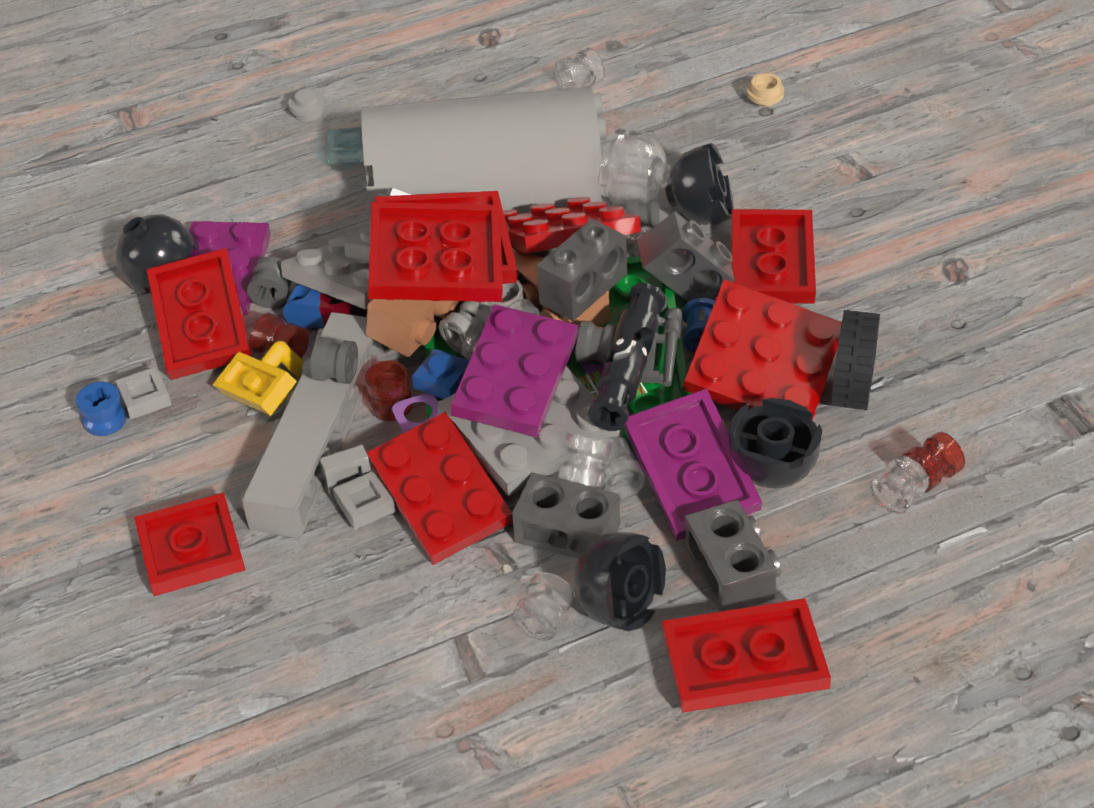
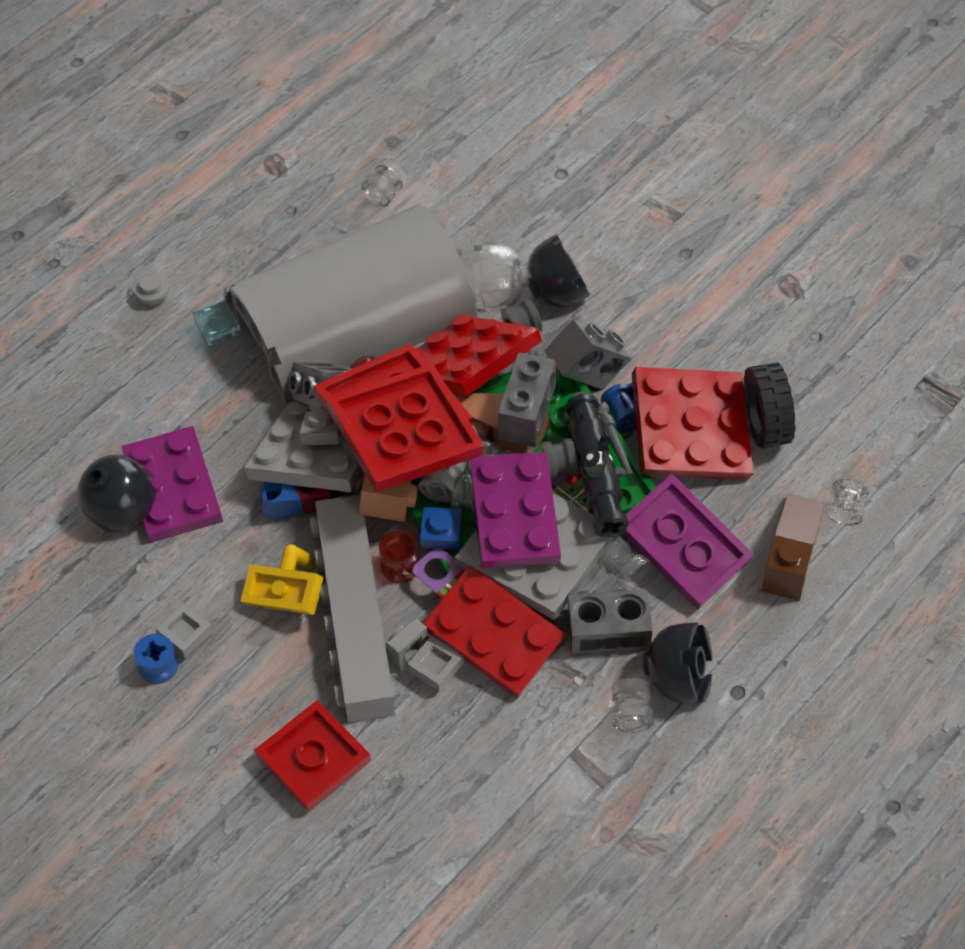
camera: 25 degrees left, 10 degrees up
(198, 313) = (192, 539): red plate -> none
(267, 285) = (232, 486): dark grey wheel -> none
(272, 328) = (273, 538): clear red wheel -> none
(334, 360) = (355, 550): dark grey wheel -> none
(584, 460) = (607, 570): clear wheel -> none
(731, 556) = (745, 615): flat silver brick -> none
(745, 655) = (802, 689): red plate -> none
(765, 89) = (554, 154): tan plate -> none
(775, 253) = (647, 320): red plate -> none
(775, 442) = (744, 500): black cylinder -> none
(811, 511) = (793, 547): none -> reddish brown slope
(939, 458) = (864, 467): clear red wheel -> none

